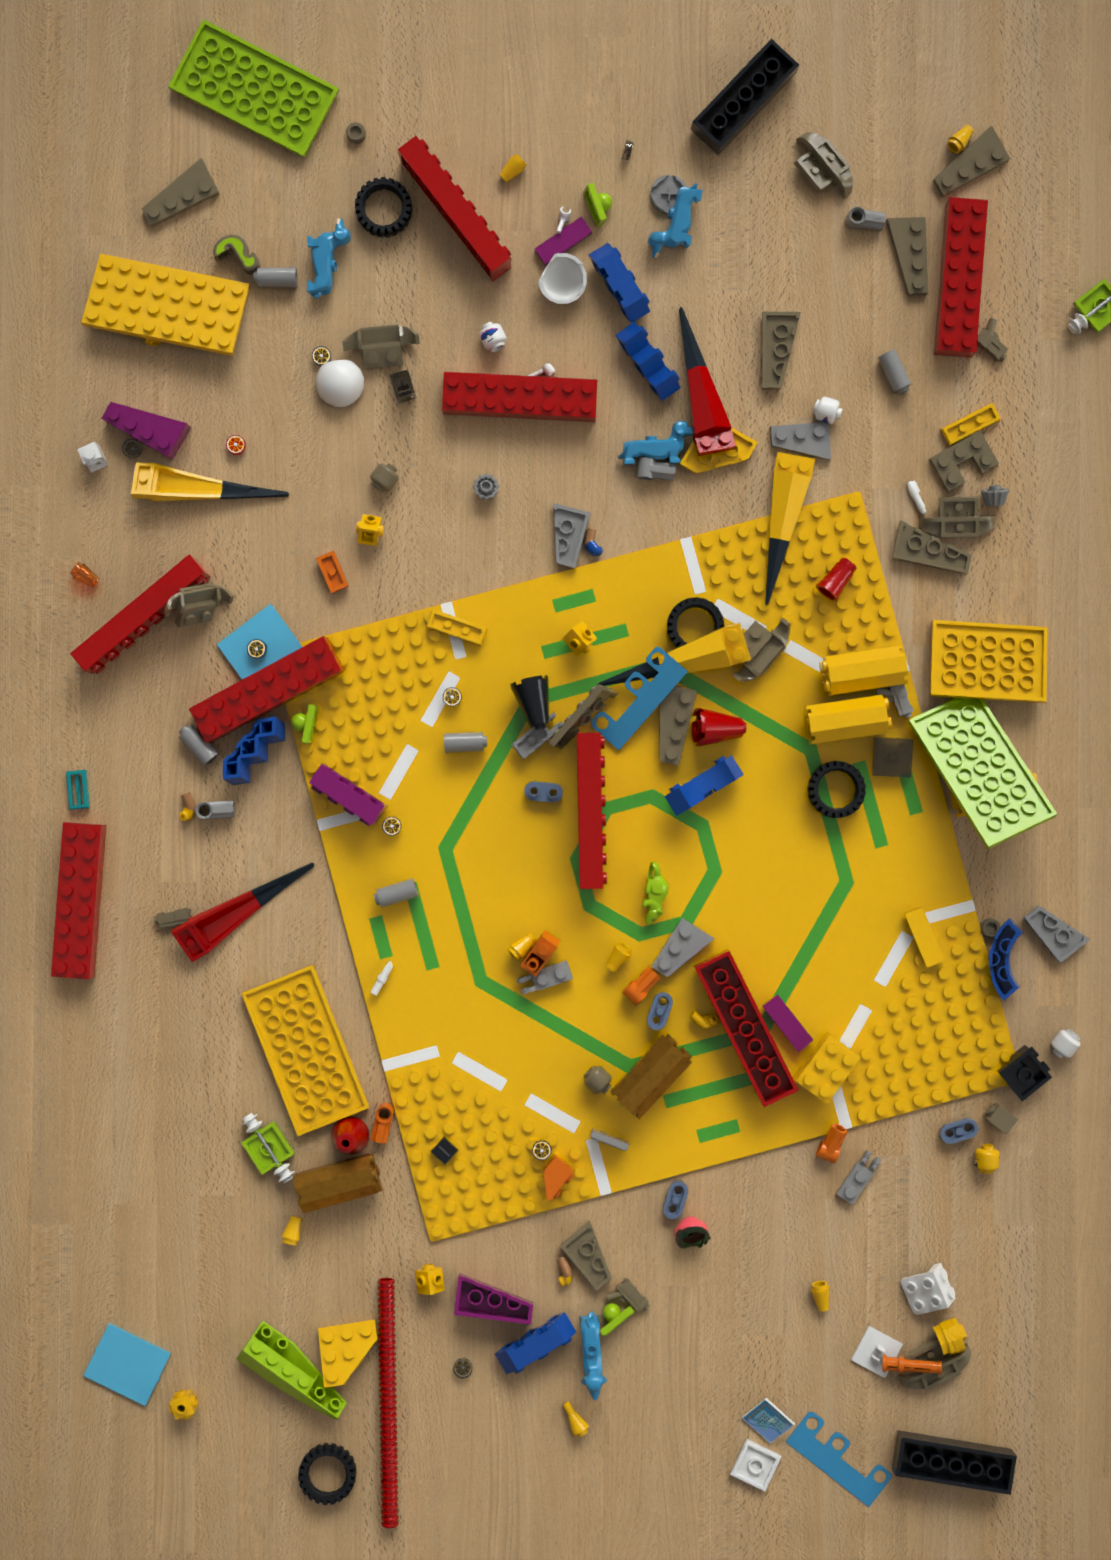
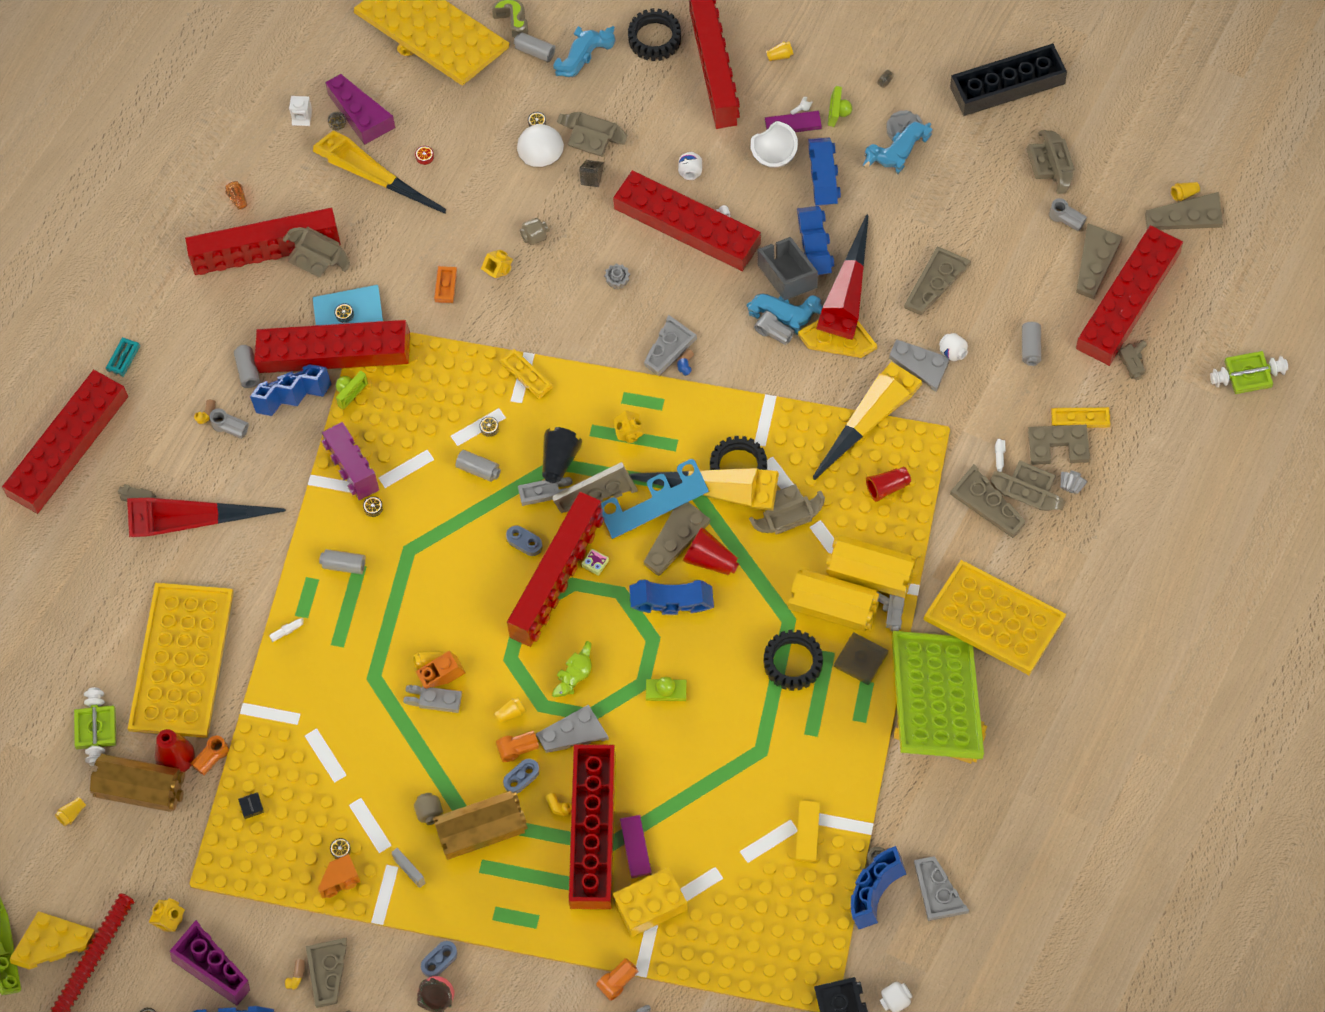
camera: 30 degrees right, 25 degrees down
(616, 781) = (595, 562): none -> tile
(641, 405) = (790, 271): none -> dark grey piece
(740, 870) = (665, 689): none -> lime tile

